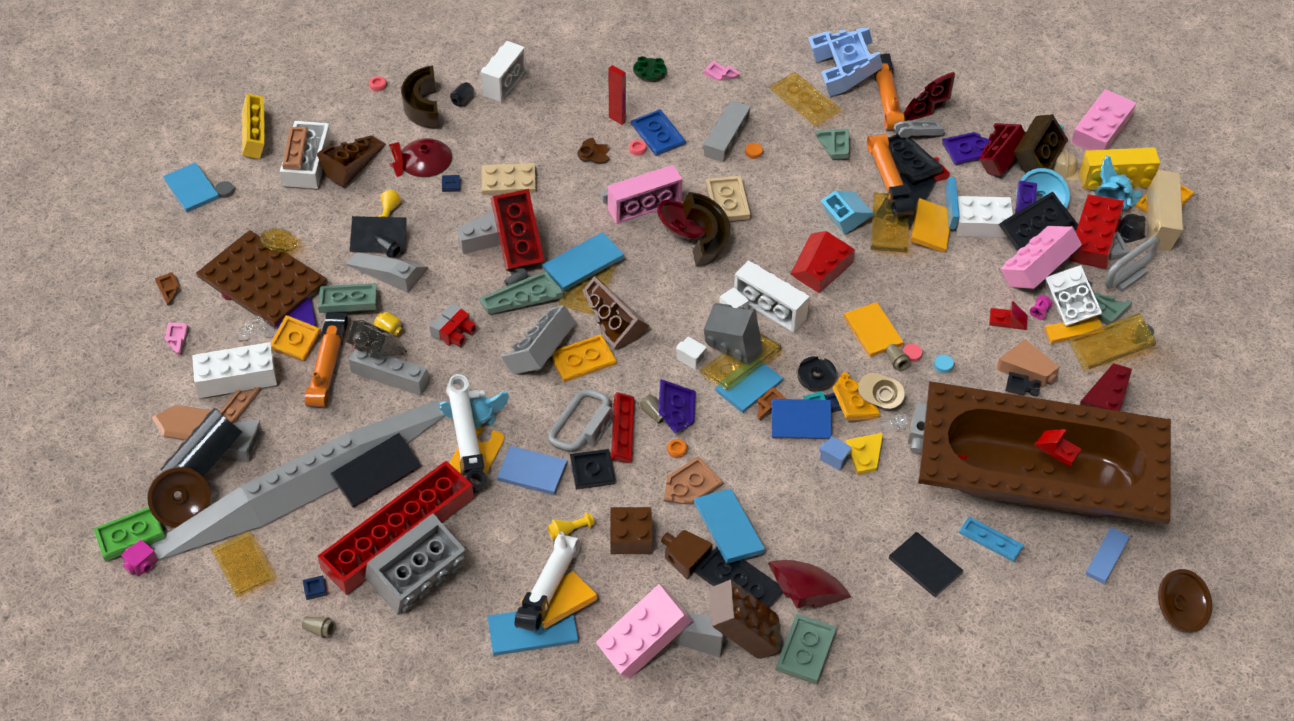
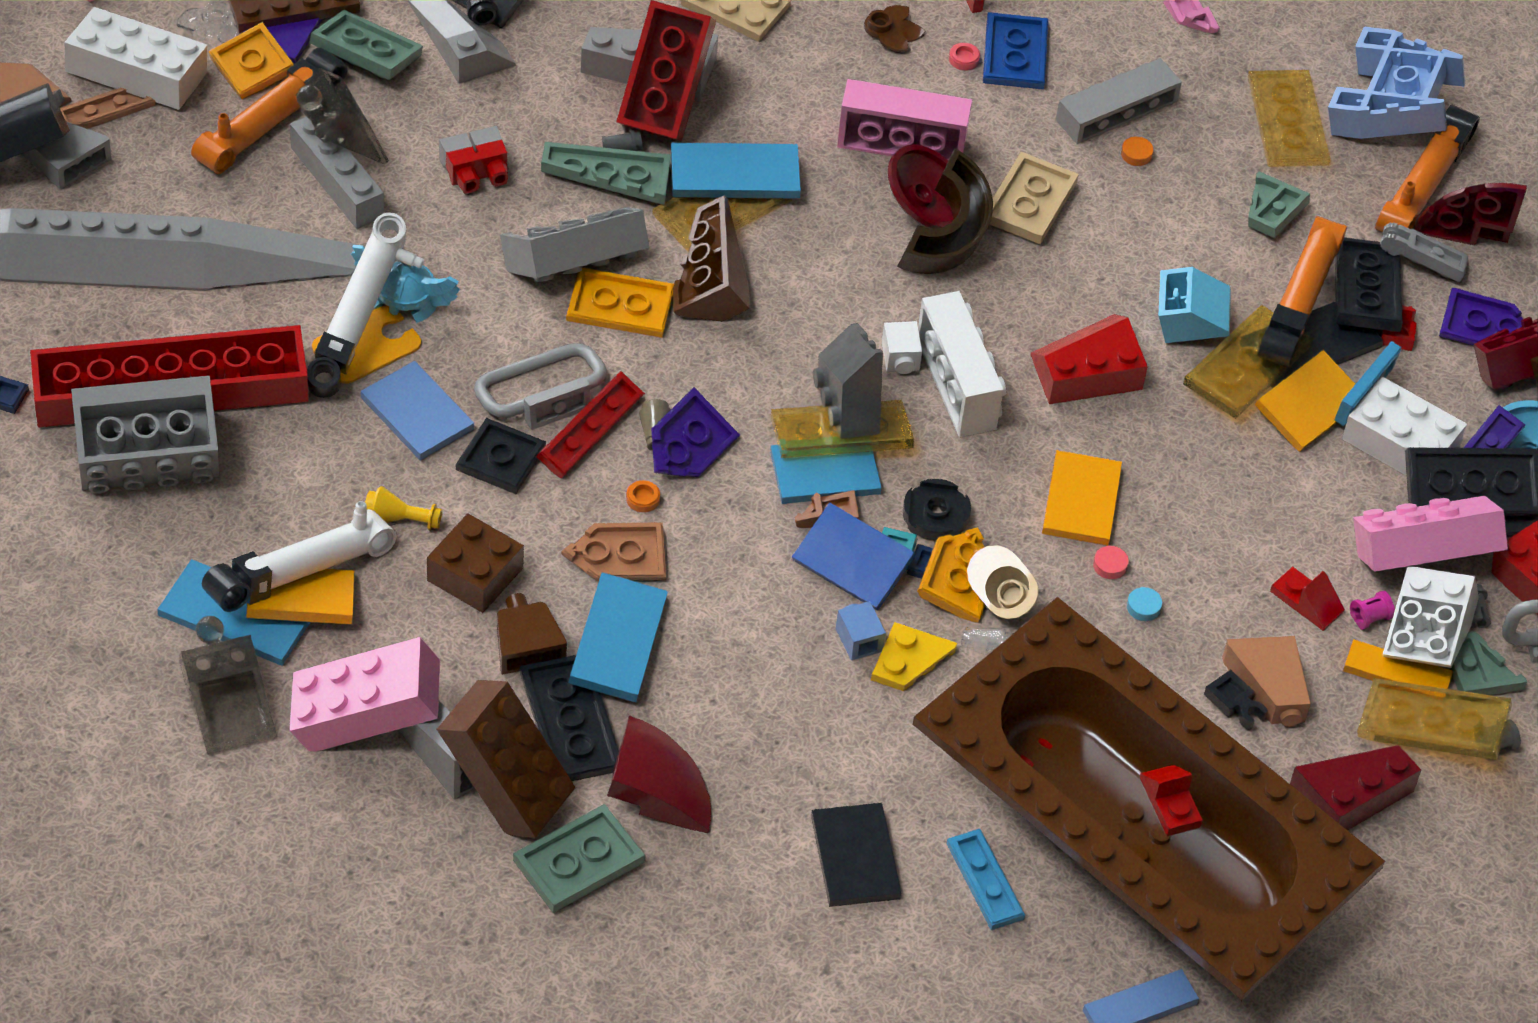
camera: 30 degrees right, 0 degrees up
(375, 470) = (207, 289): black tile -> none
(389, 323) = (389, 110): yellow head -> none
(571, 674) = (229, 694): none -> clear smoke slope
(691, 352) = (777, 379): white brick -> none
(898, 358) = (1079, 556): dark tan cone -> none

